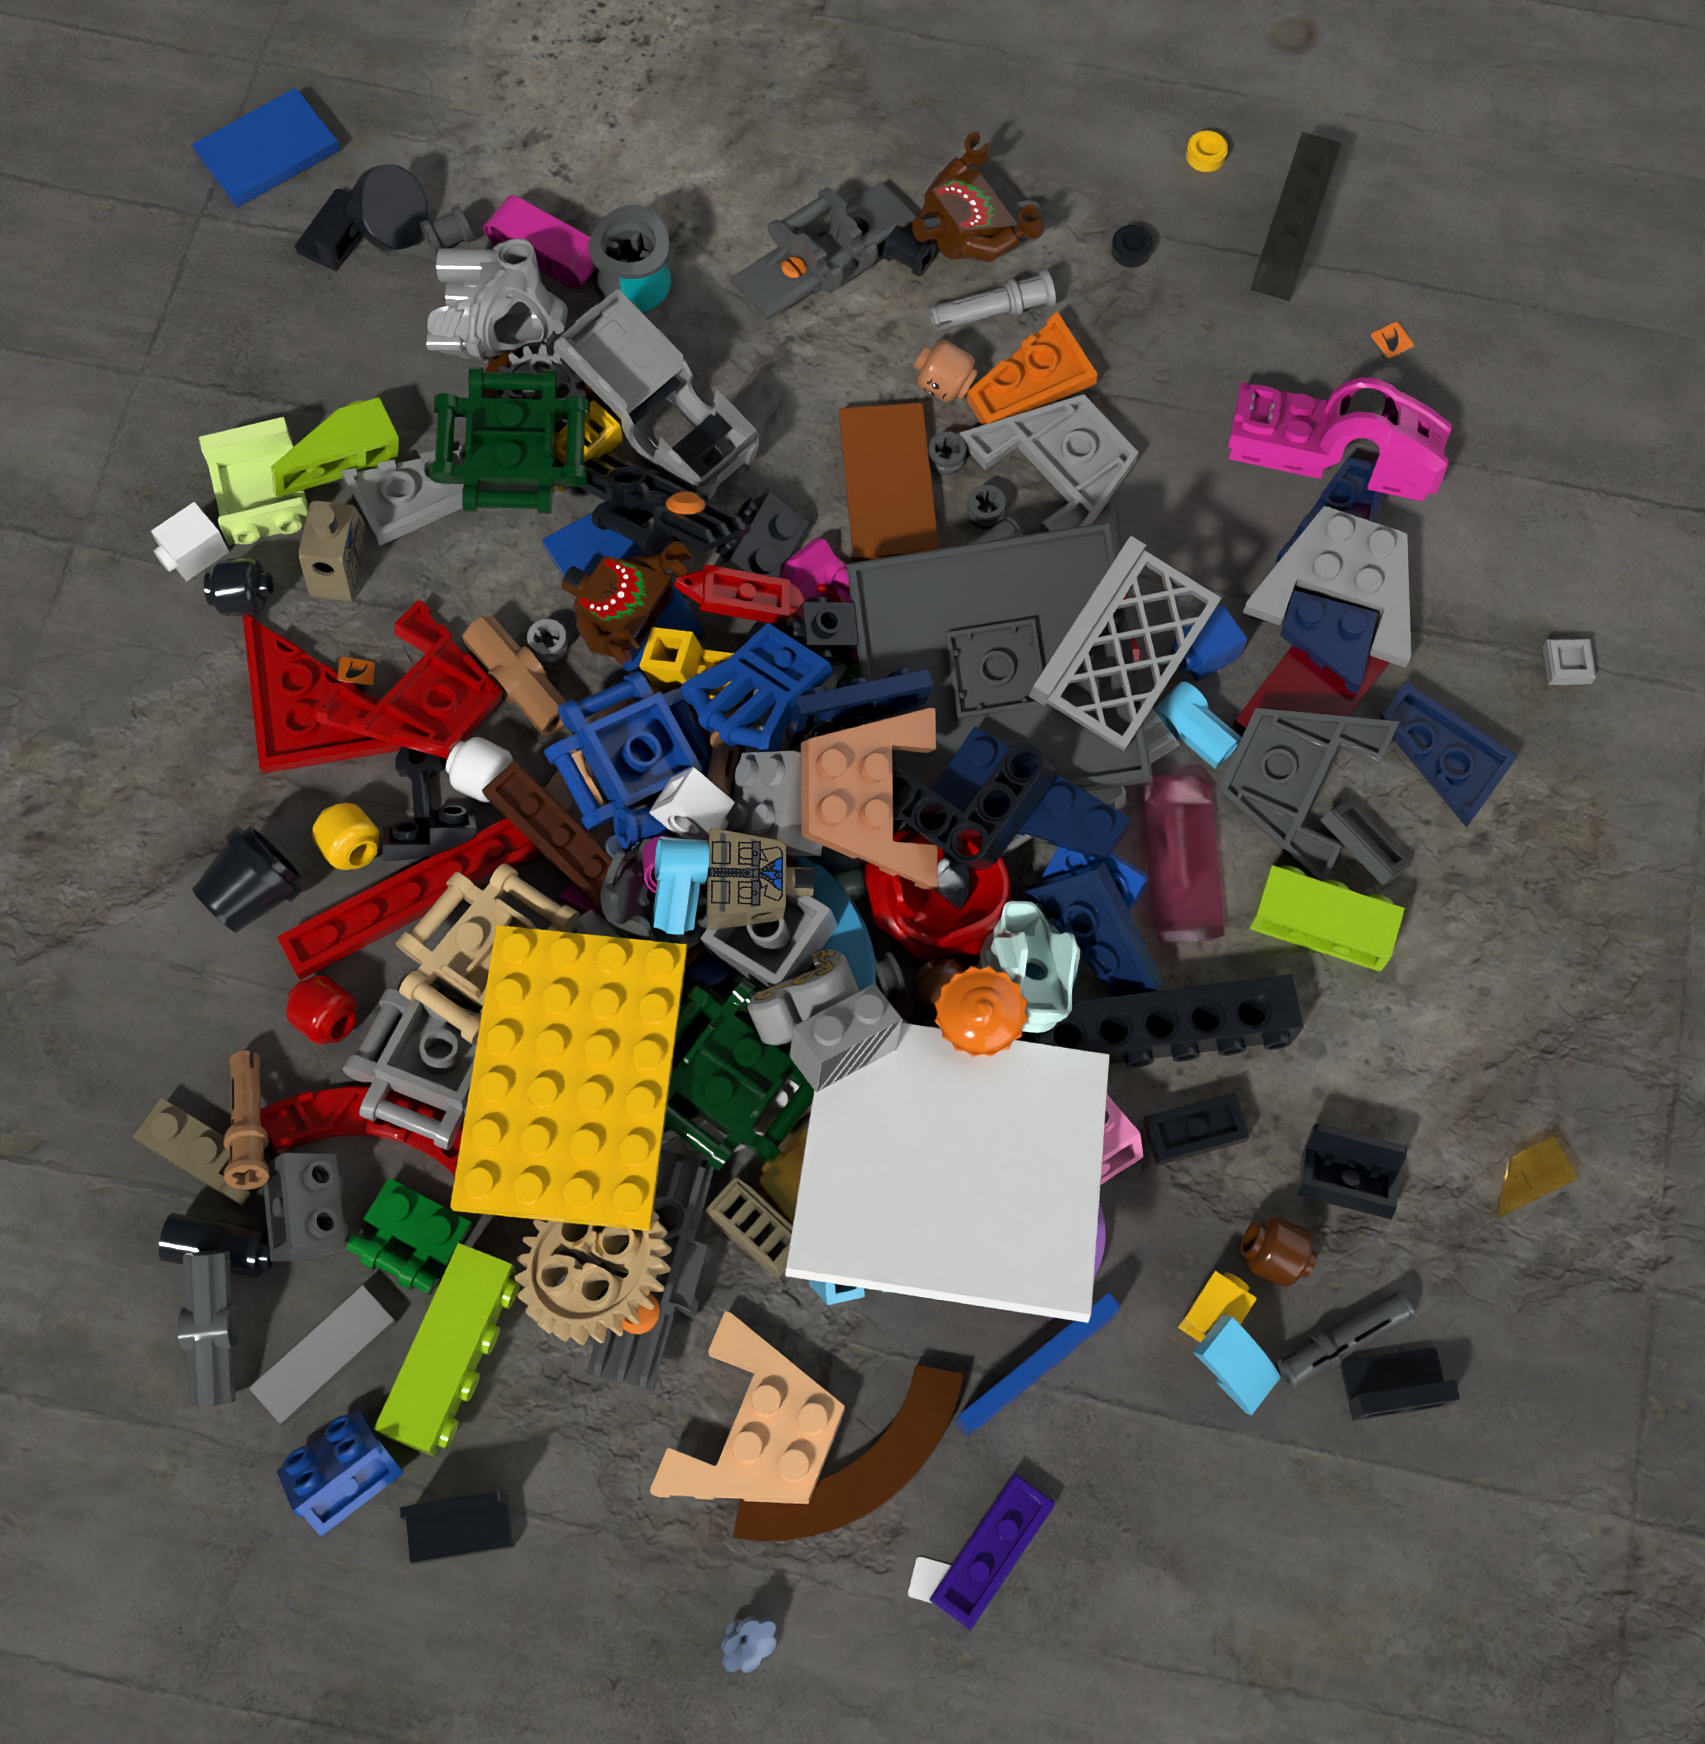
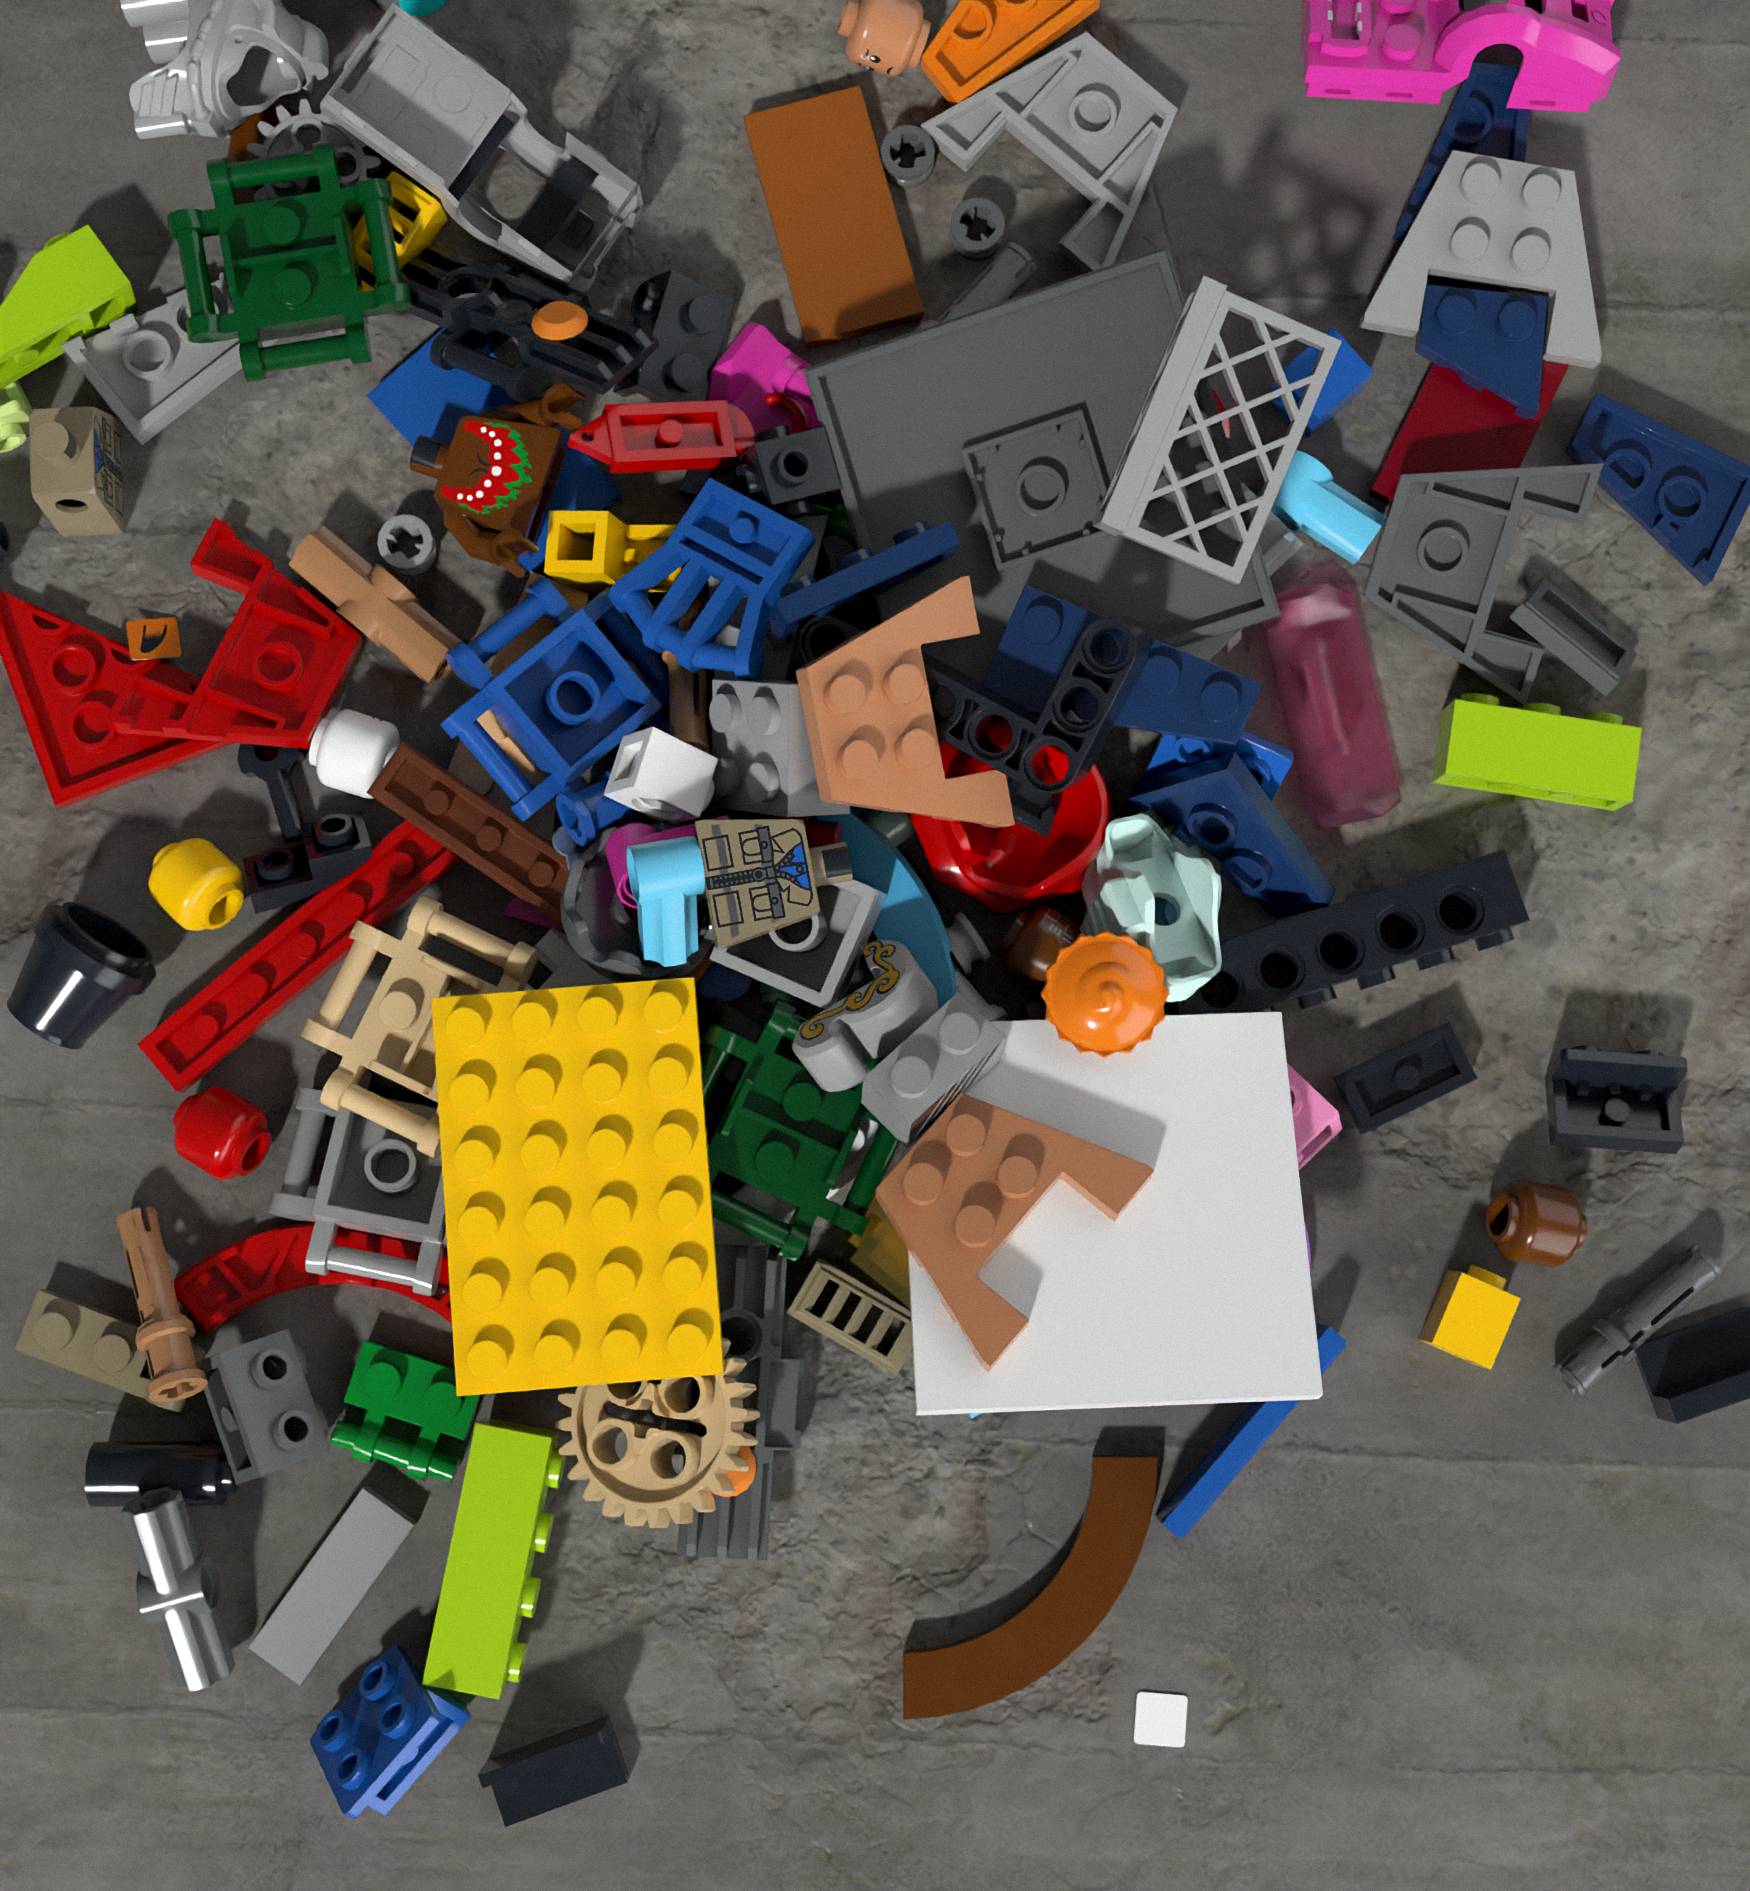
camera: 10 degrees left, 15 degrees up
(748, 1643) = (947, 1845): sand blue plant -> none
(776, 1437) = (934, 1586): light nougat wing -> none
(862, 1123) = (972, 1189): none -> nougat wing
(992, 1551) = (1231, 1671): dark purple tile -> none
(1238, 1363) = (1505, 1384): medium azure slope -> none

